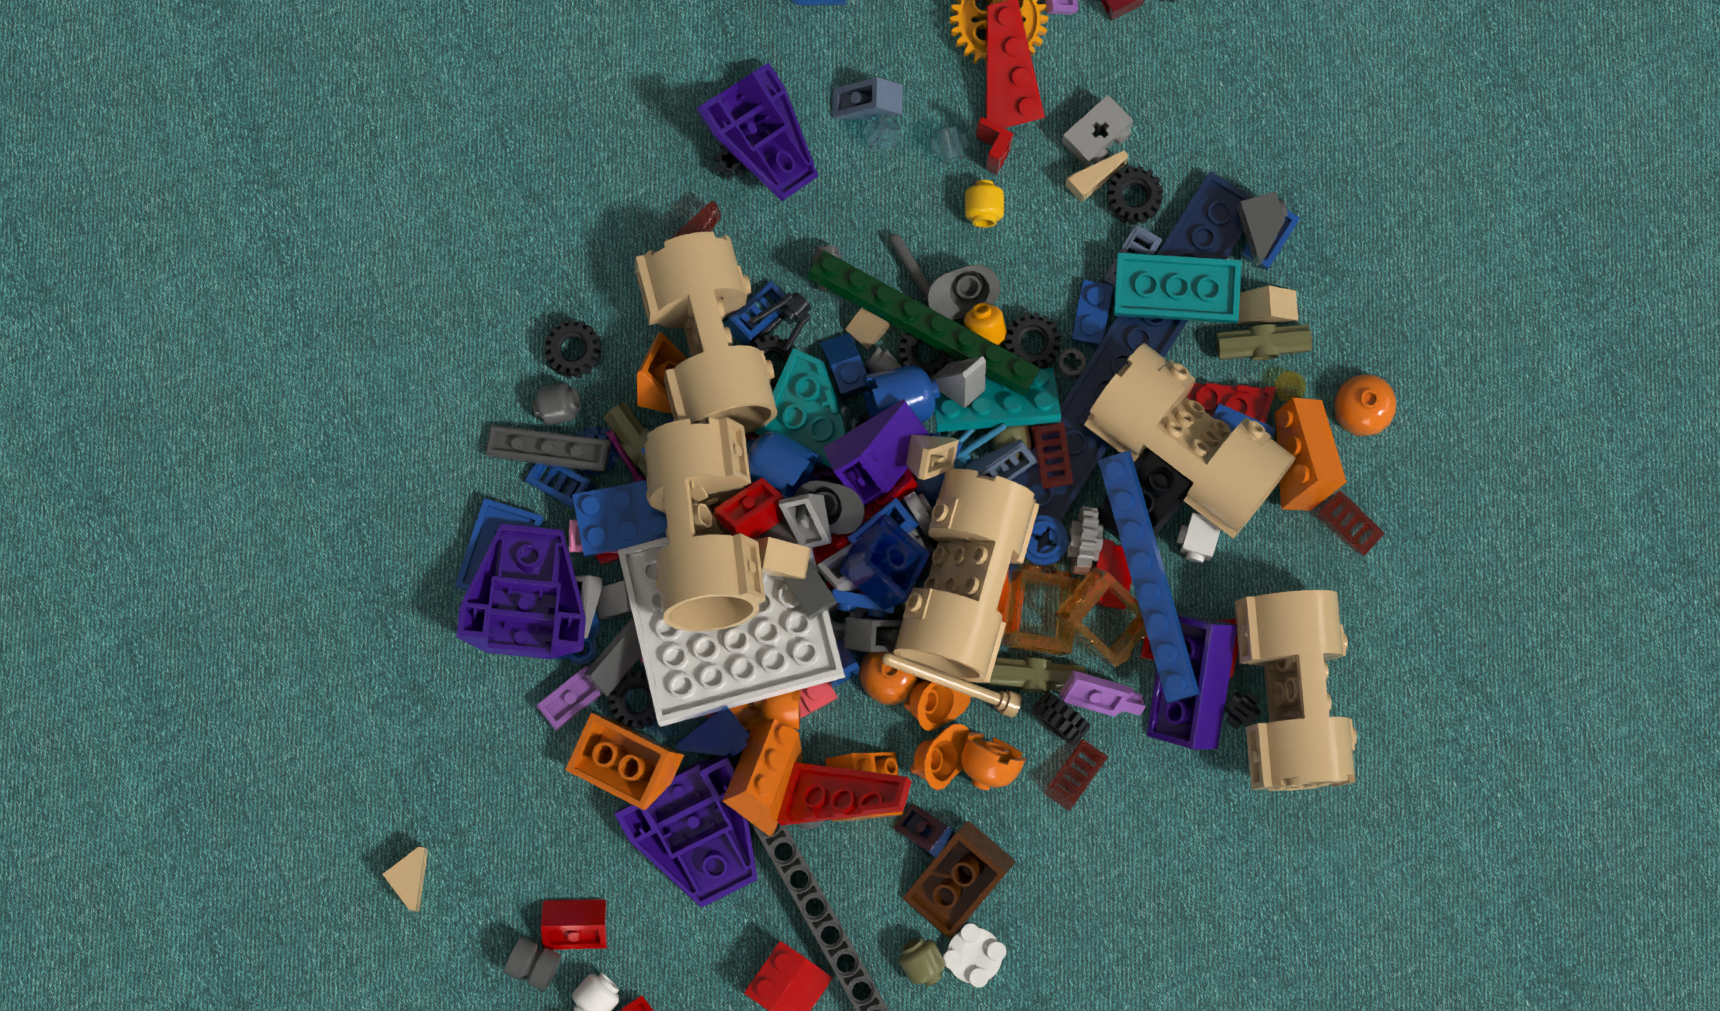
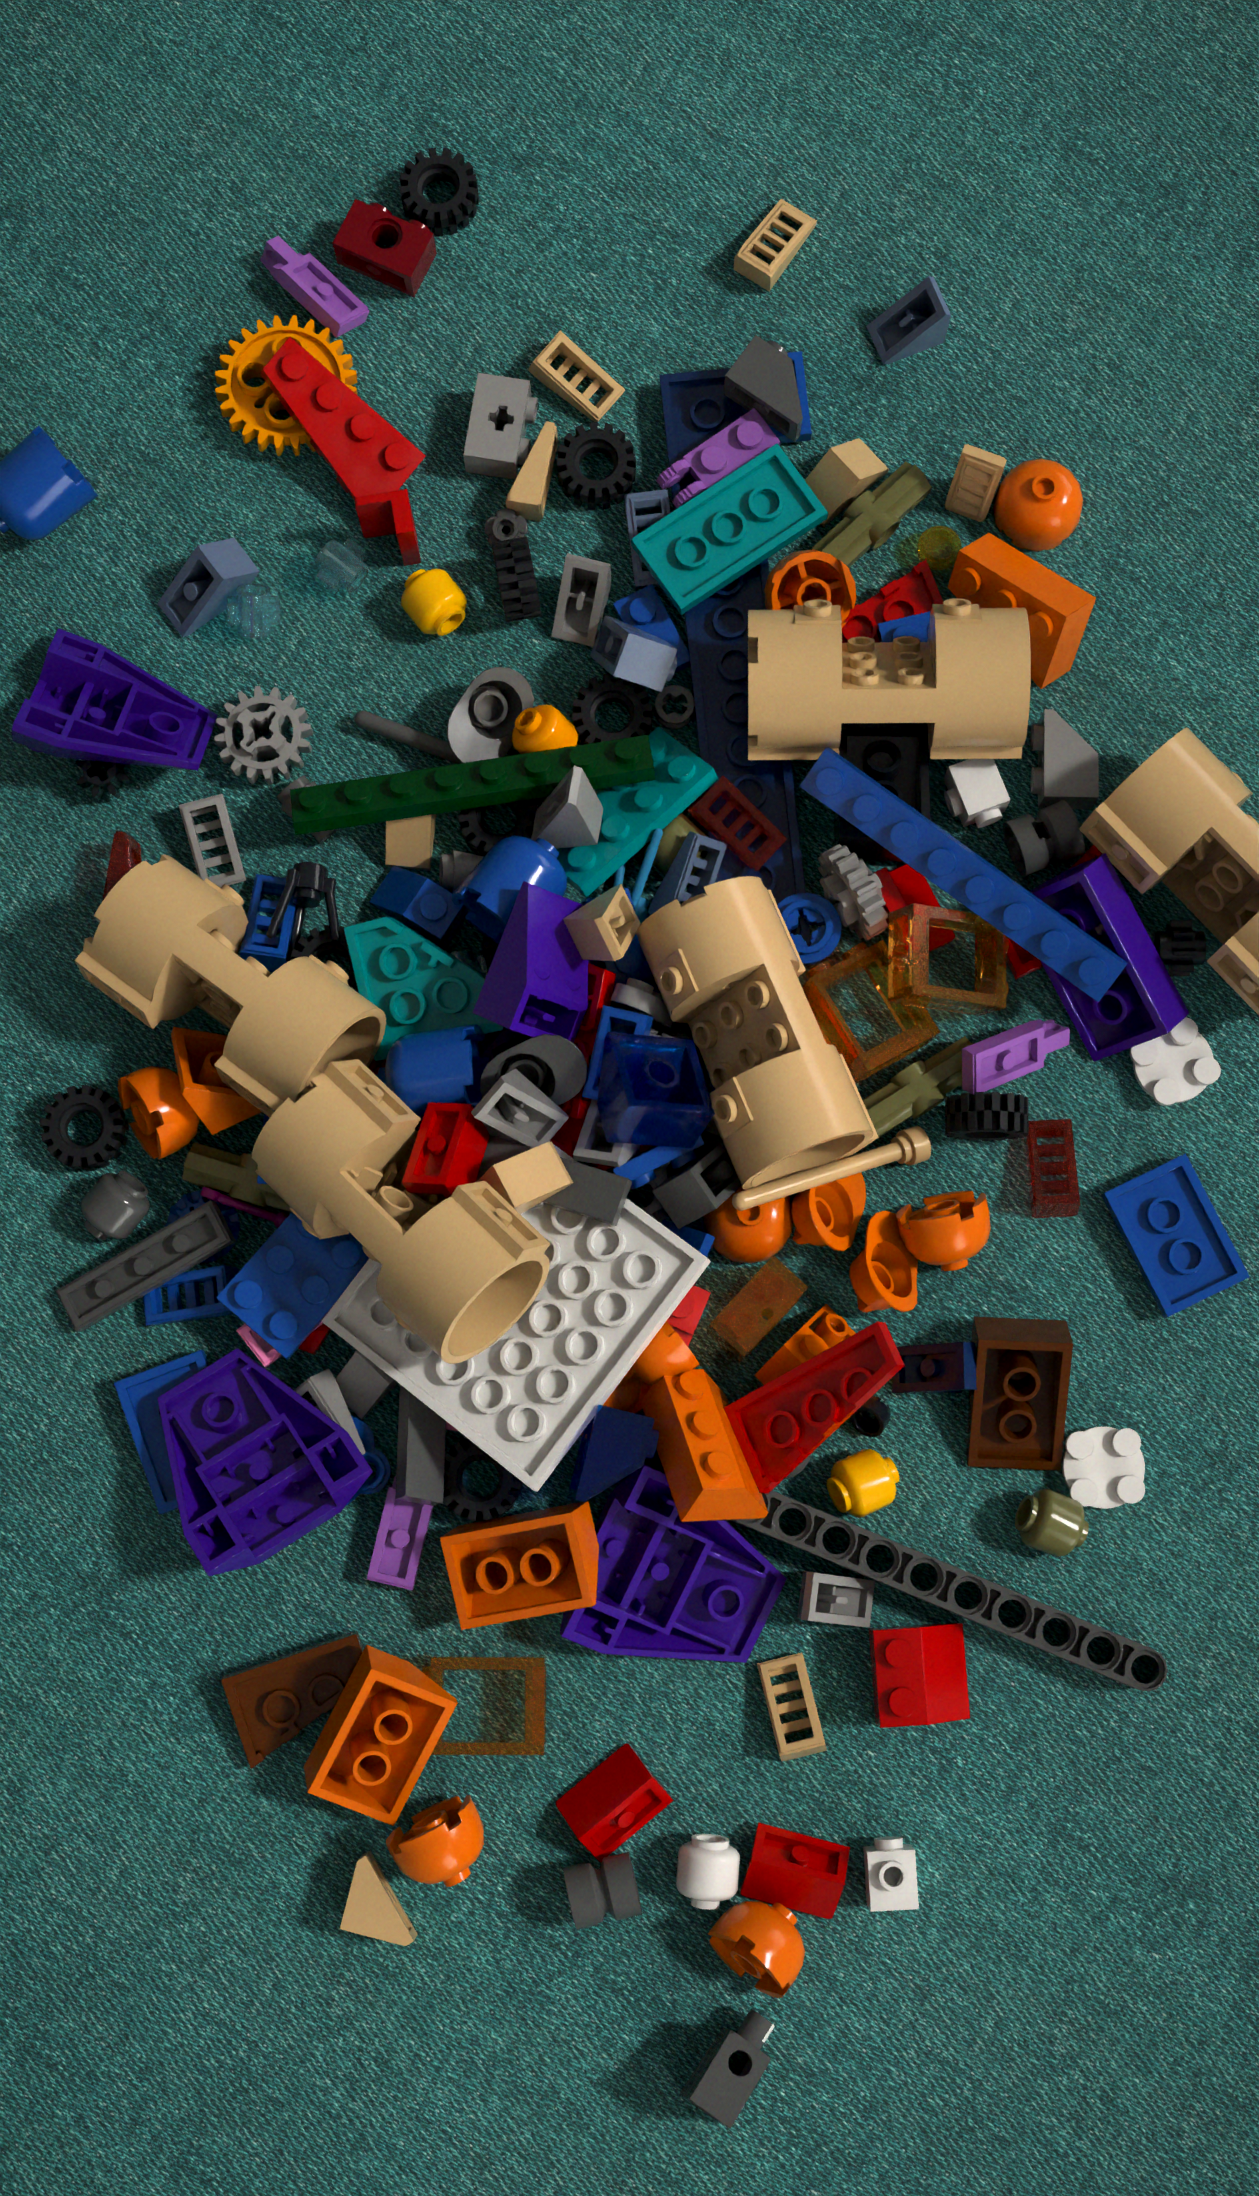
camera: 35 degrees left, 0 degrees up
(450, 733) = (288, 1692): none -> reddish brown wing
(467, 872) = (440, 1842): none -> orange cylinder
(479, 791) = (378, 1736): none -> orange slope
(573, 839) = (534, 1703): none -> clear orange window
(619, 371) = (160, 1111): none -> orange cylinder
(695, 974) = (802, 1747): none -> tan slope
(760, 218) = (200, 807): none -> light grey slope
(775, 911) = (836, 1599): none -> light grey slope
(823, 211) = (272, 720): none -> light grey gear
(838, 861) = (863, 1483): none -> yellow head
(864, 719) = (768, 1294): none -> clear orange window
(865, 833) = (876, 1425): none -> black hinge
(1038, 226) = (516, 579): none -> black tyre
(1064, 193) = (505, 518): none -> dark grey plate
(1066, 265) = (581, 599): none -> light grey slope
(1069, 317) = (634, 654): none -> sand blue slope
(1113, 863) = (1175, 1236): none -> blue plate
(1150, 127) = (555, 381): none -> tan slope
(1189, 771) = (1175, 1064): none -> white piece
(1198, 353) = (808, 577): none -> orange cylinder
(1205, 243) = (719, 456): none -> medium lavender hinge
(1226, 589) = (1058, 837): none -> dark grey wheel
(1261, 562) = (1065, 764): none -> light grey slope
(1313, 151) = (758, 270): none -> tan slope
(1335, 366) = (975, 483): none -> tan slope
(1350, 507) = (1105, 628): clear red slope -> none
(1373, 248) = (911, 323): none -> sand blue slope

